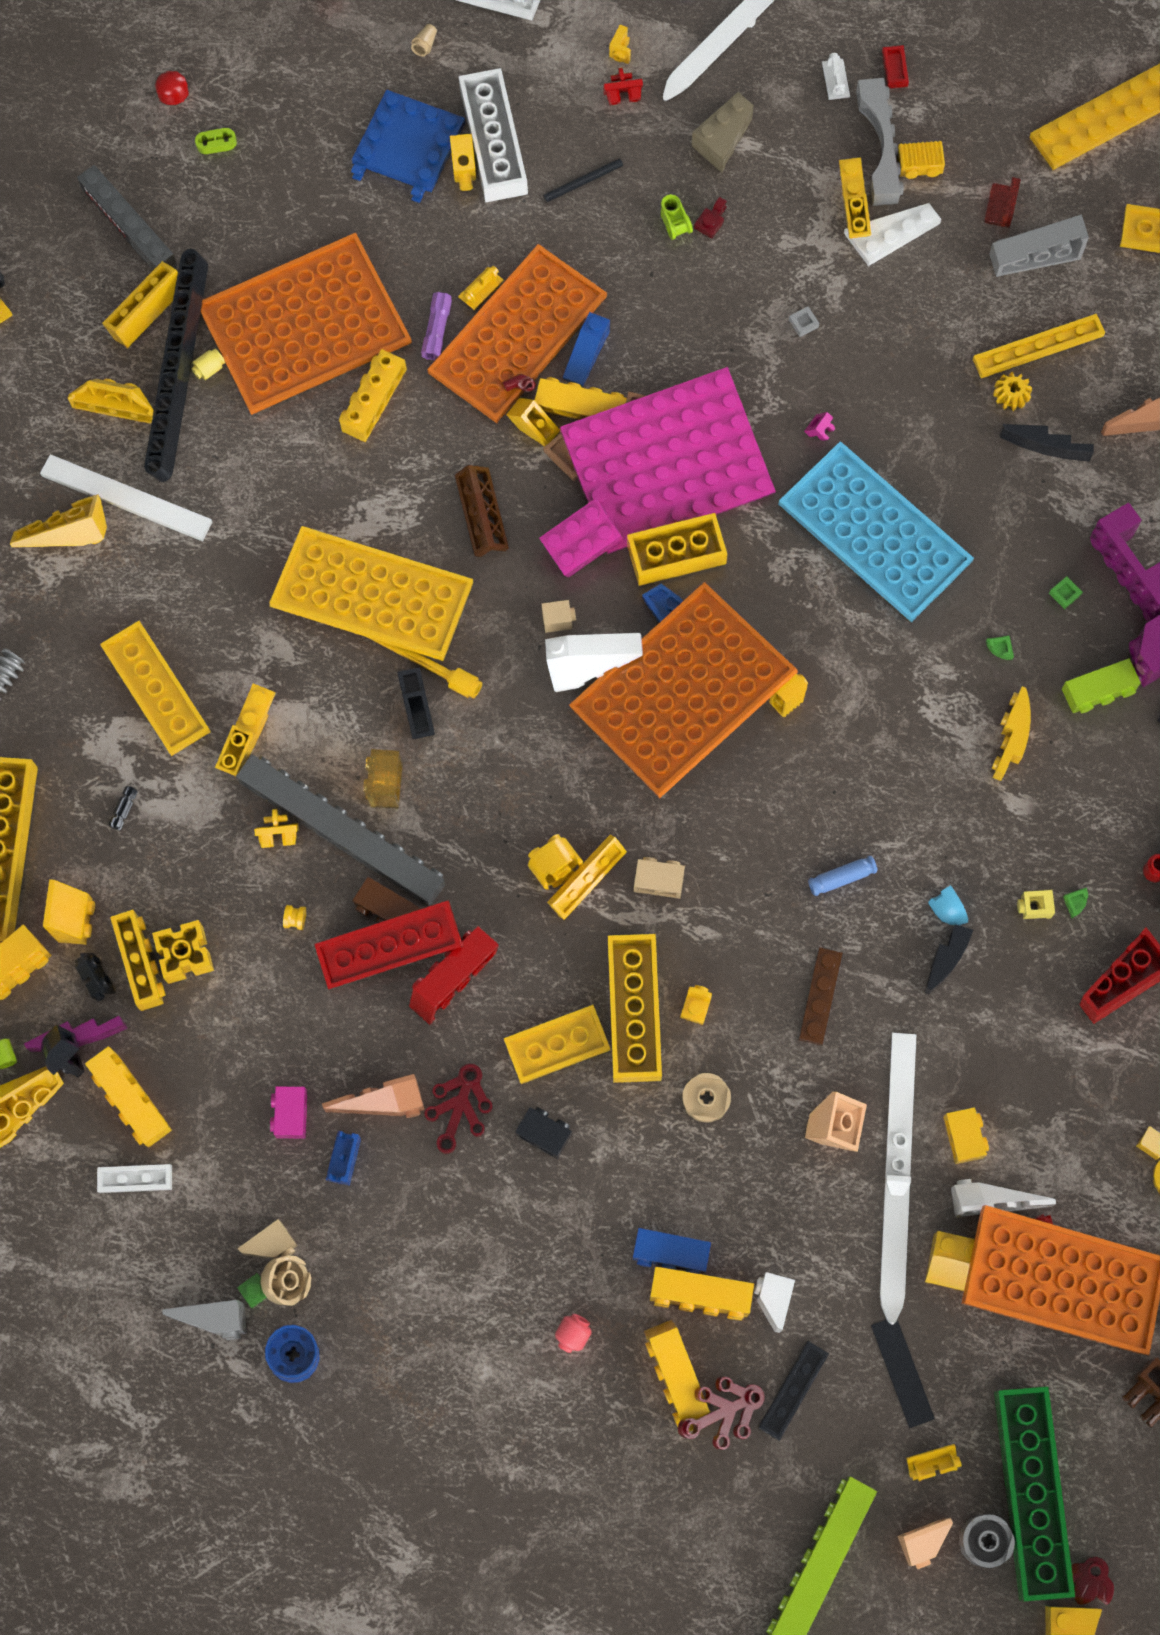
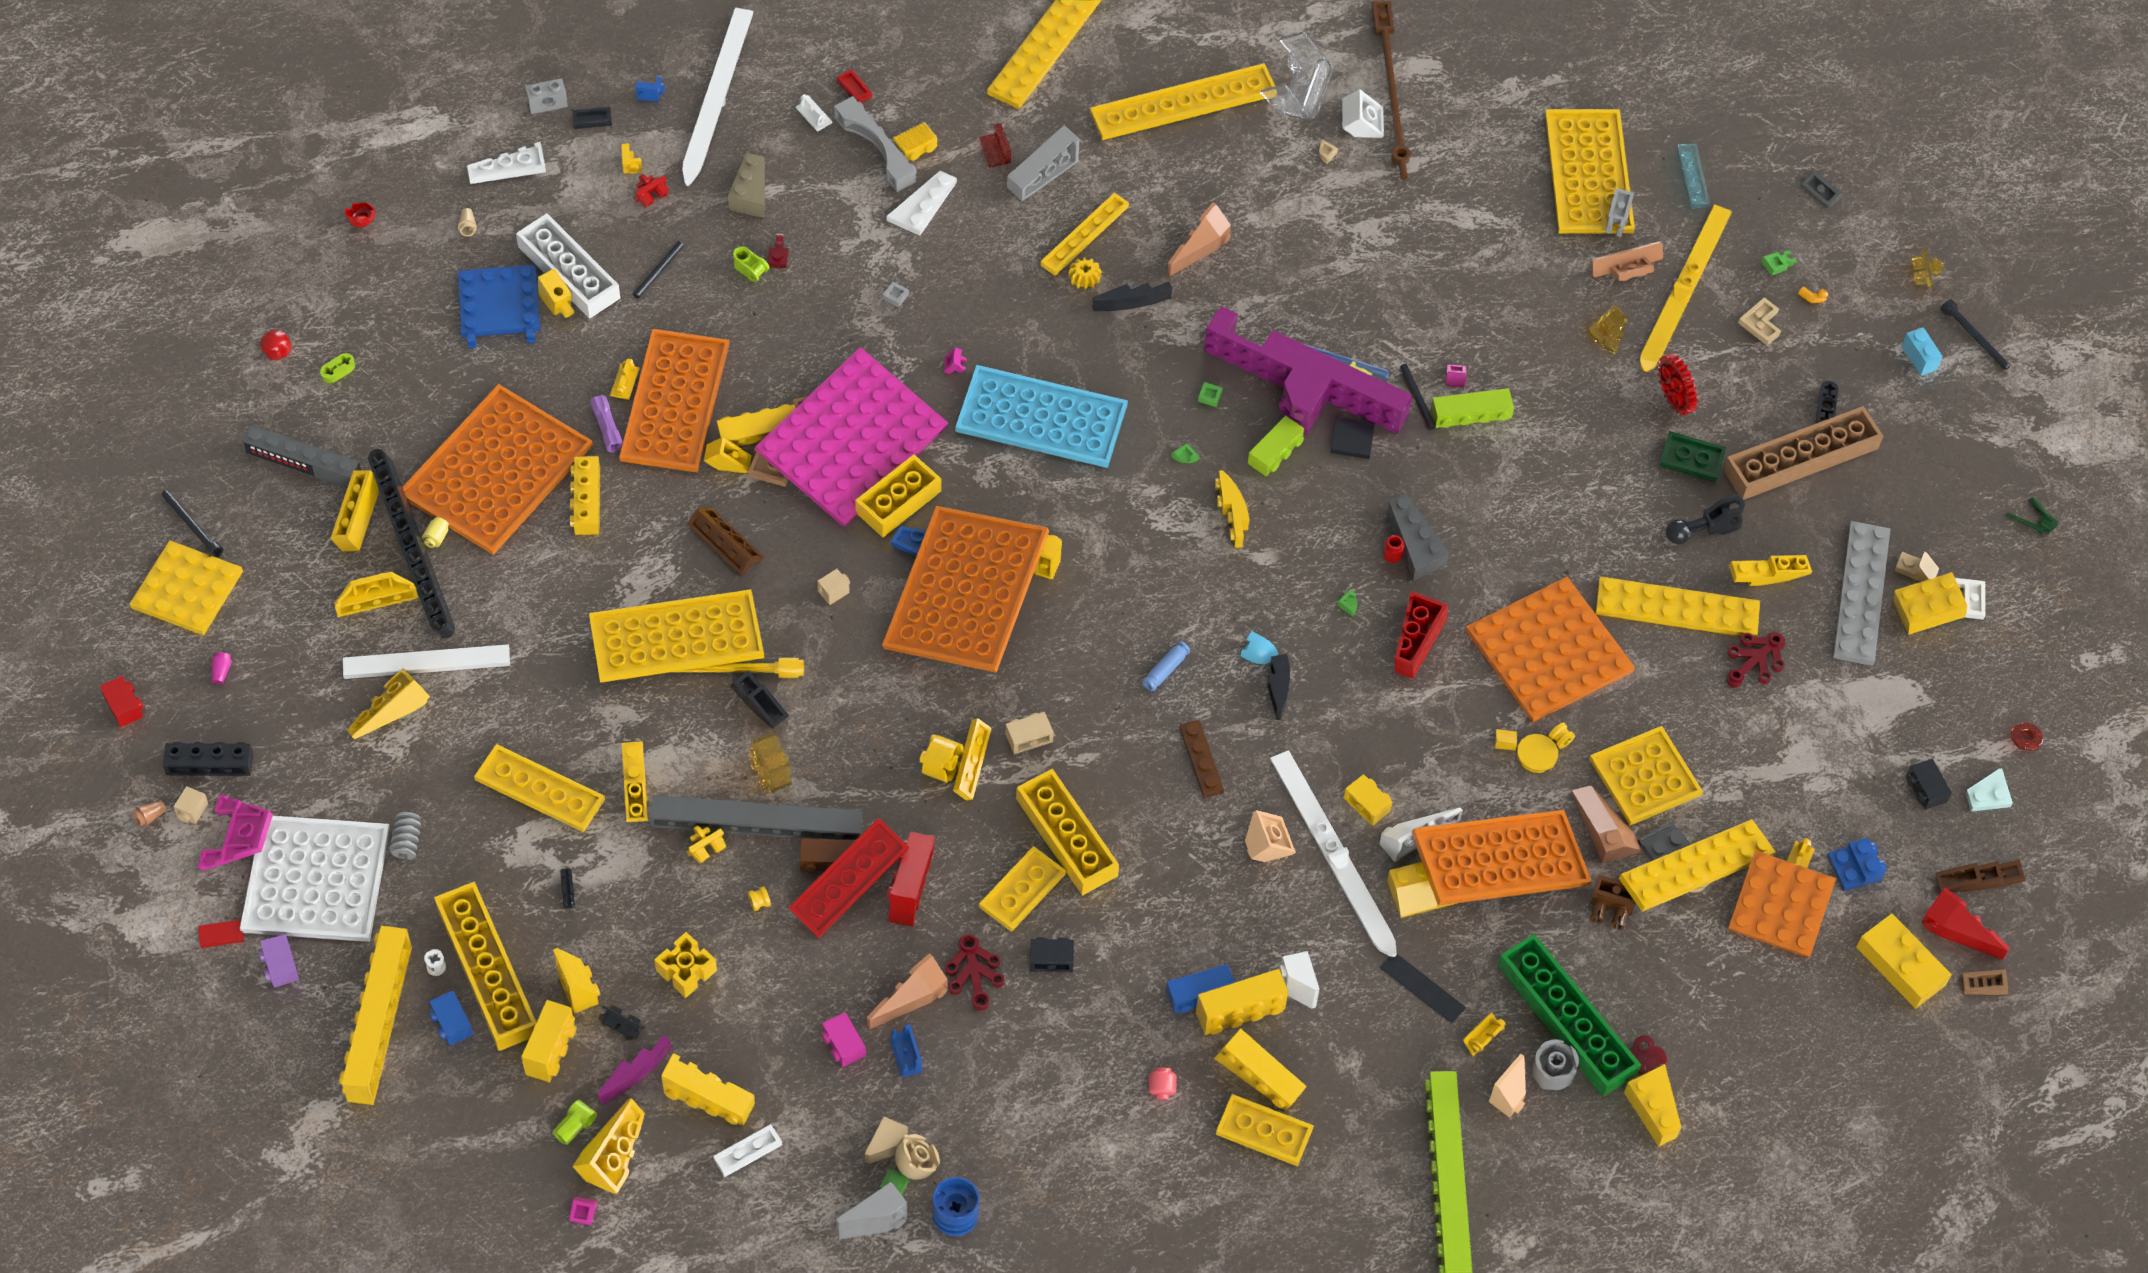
camera: 35 degrees left, 15 degrees down
(59, 1052) = (630, 1081): black brick -> none
(137, 960) = (652, 989): yellow brick -> none
(521, 382) = (701, 431): dark red arm -> none
(581, 538) = (820, 519): dark pink brick -> none
(583, 657) = (875, 602): white wedge -> none
(587, 348) = (737, 385): blue slope -> none
(647, 1440) = (1264, 1130): none -> yellow plate
(696, 1004) = (1111, 808): yellow bracket -> none
(698, 1086) = (1160, 881): tan plate -> none
(725, 1411) = (1323, 1061): plant -> none
(793, 1390) = (1351, 1041): black tile -> none
(854, 198) = (881, 191): yellow slope -> none
(1043, 900) = (1322, 616): light yellow brick -> none

